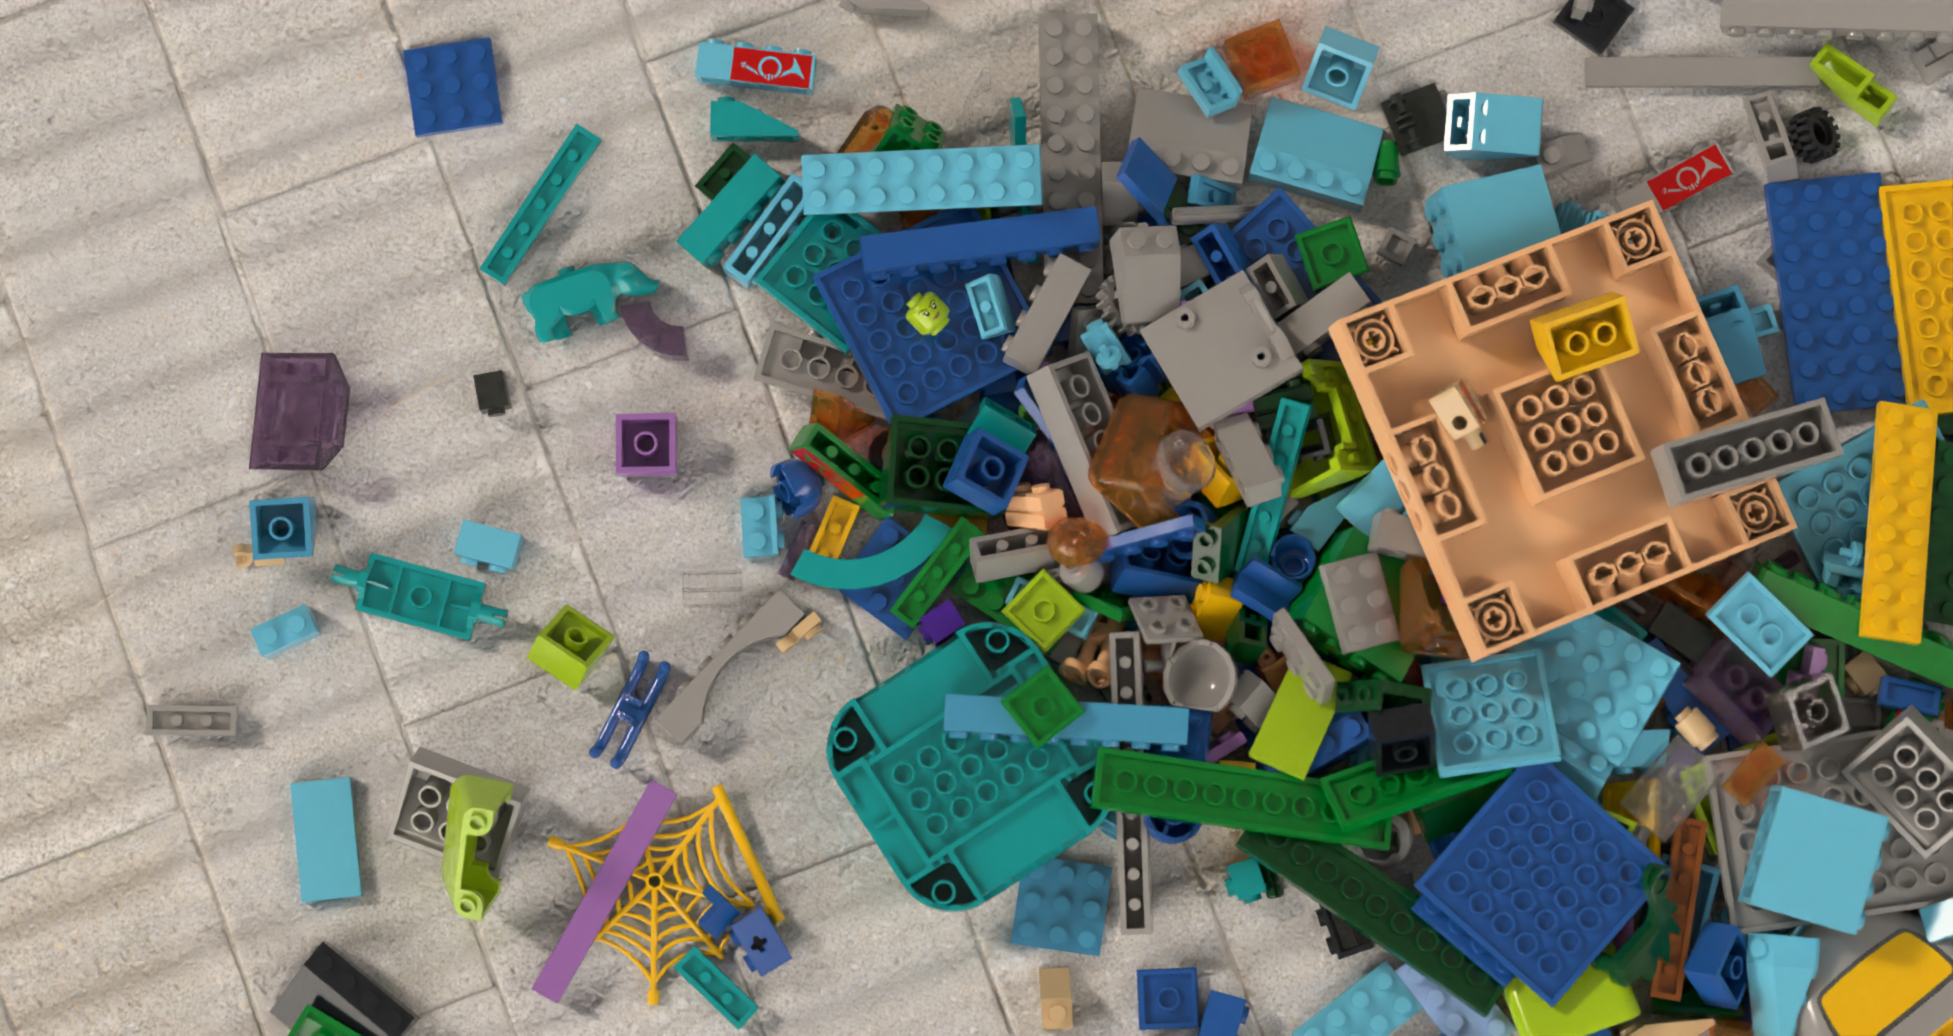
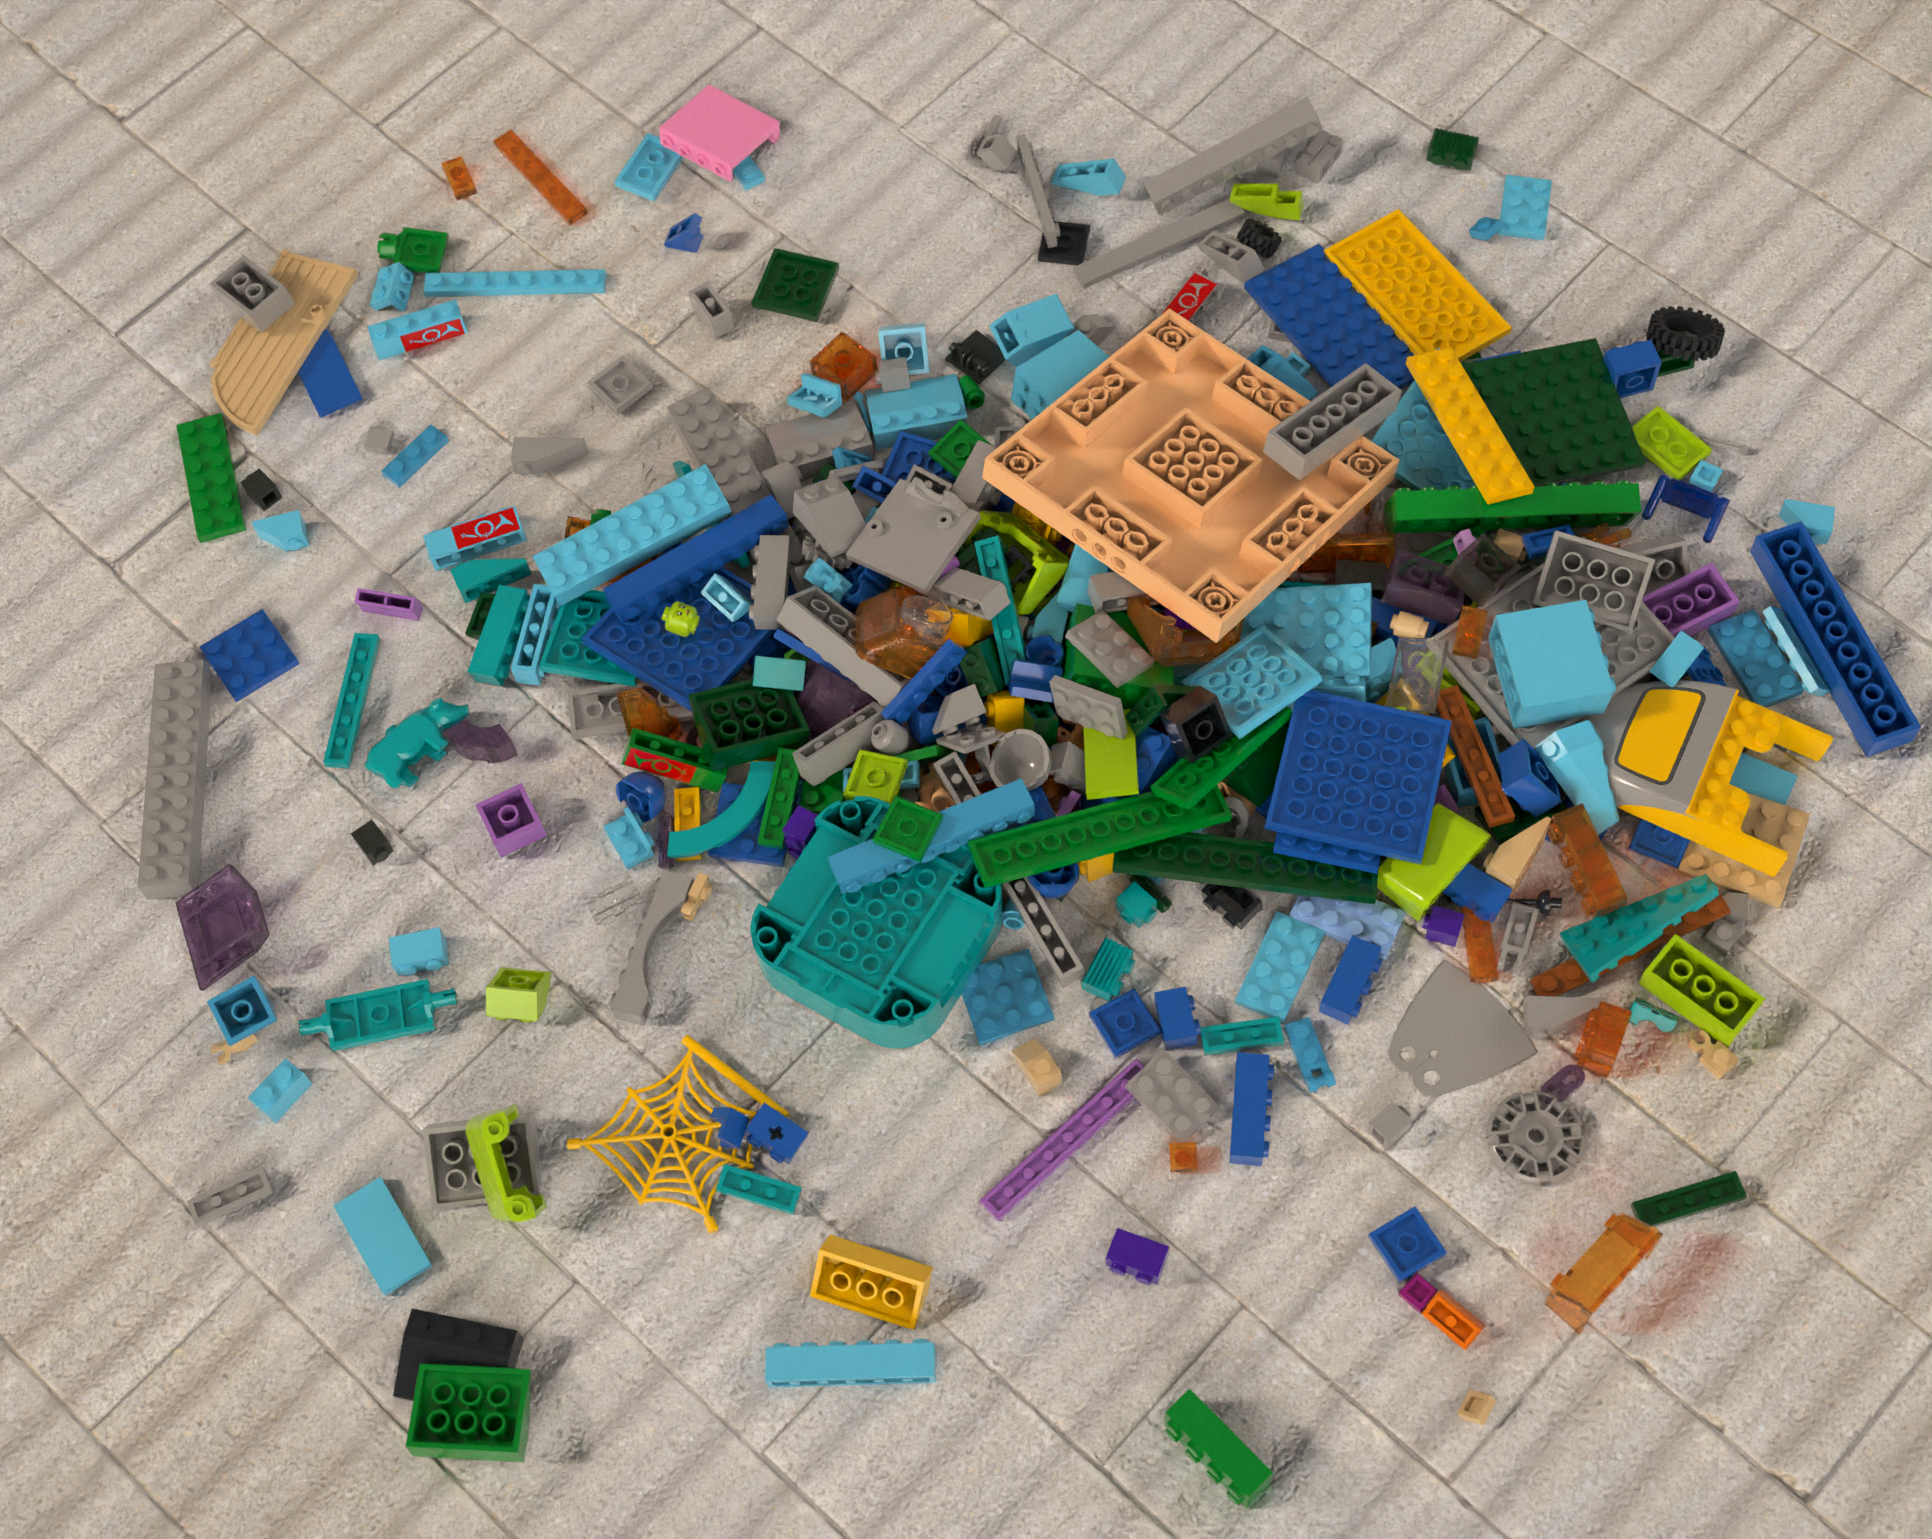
camera: 20 degrees left, 20 degrees down
(317, 206) = (175, 779): none -> light grey brick
(603, 81) = (388, 604): none -> medium lavender piece
(604, 891) = (631, 1160): medium lavender tile -> none
(631, 710) = (589, 1015): blue piece -> none
(986, 471) = (779, 698): blue brick -> none
(1035, 507) = (830, 708): light nougat brick -> none
(1076, 541) = (872, 709): clear orange piece -> none
(1146, 177) = (798, 462): blue tile -> none
(1166, 582) = (959, 708): none -> light grey slope
(1179, 936) = (1108, 969): none -> teal brick
(1260, 102) = (858, 396): none -> medium azure hinge
(1311, 99) = (893, 375): none -> light grey brick
(1460, 401) = (1104, 474): tan torso -> none
(1585, 335) = (1171, 396): yellow slope -> none
(1651, 941) = (1466, 782): dark green animal -> none
(1759, 624) = (1411, 528): medium azure plate -> none
(1848, 562) = (1451, 466): medium azure hips -> none

